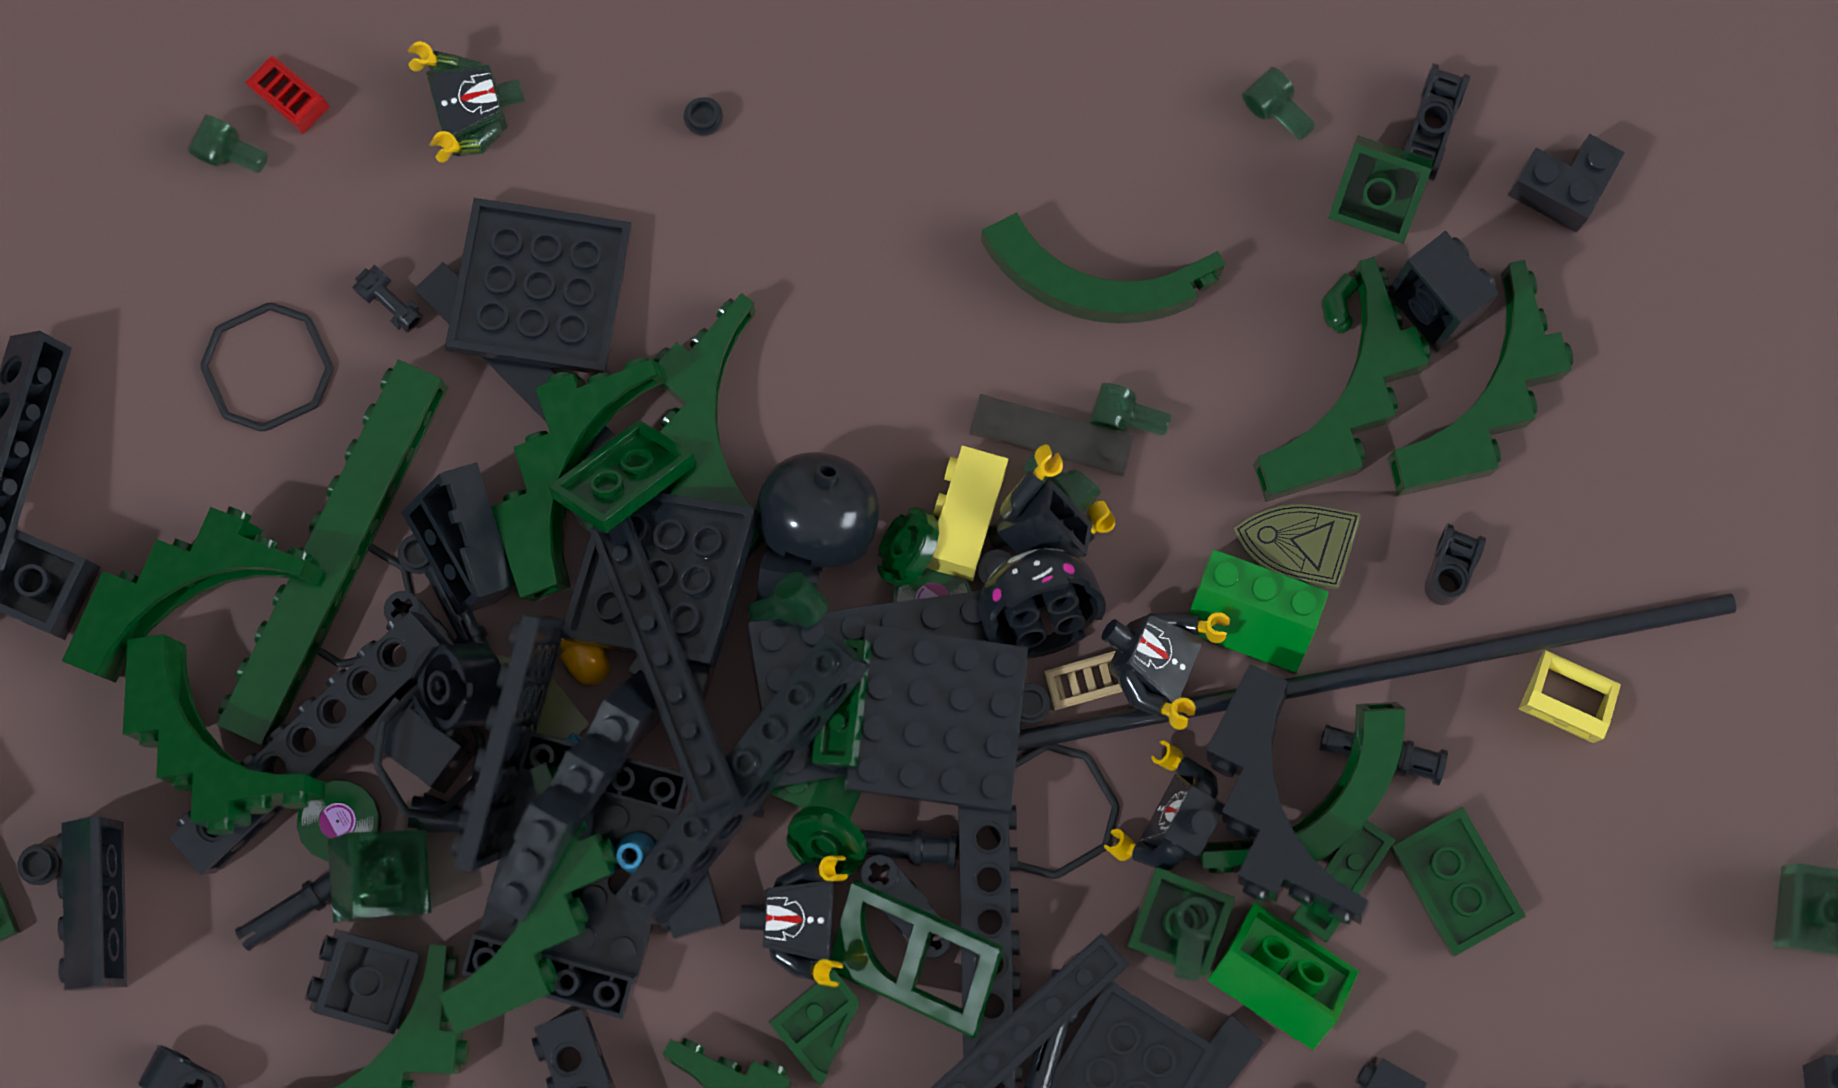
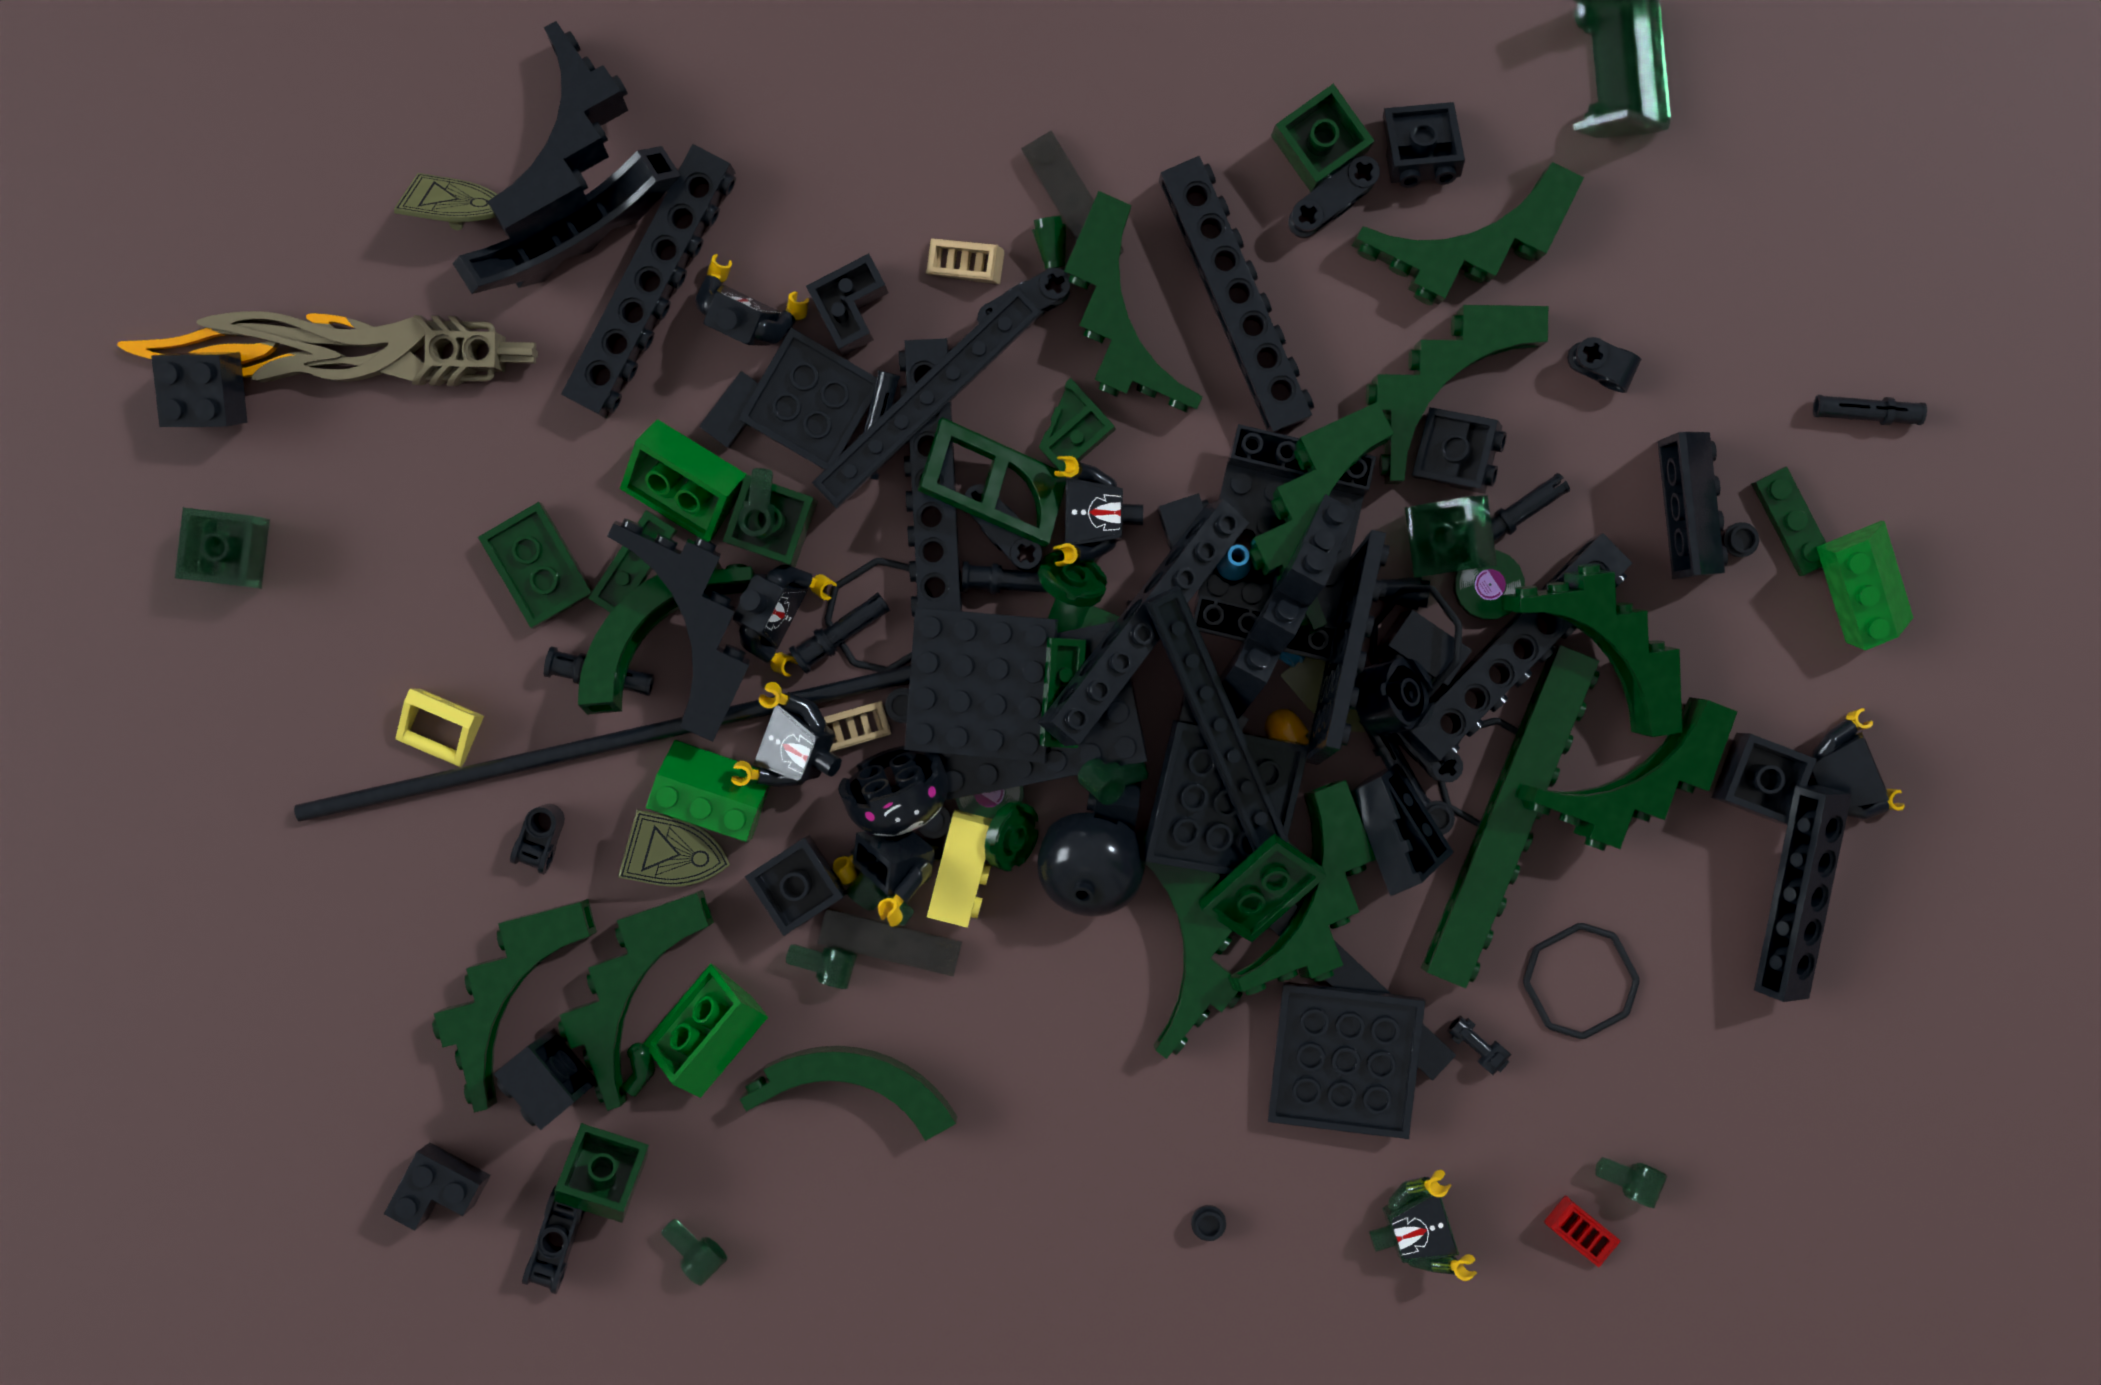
camera: 175 degrees right, 10 degrees up
(1117, 780) = (826, 641): none -> black pin
(1157, 500) = (796, 885): none -> black brick
(1264, 342) = (705, 1031): none -> green slope

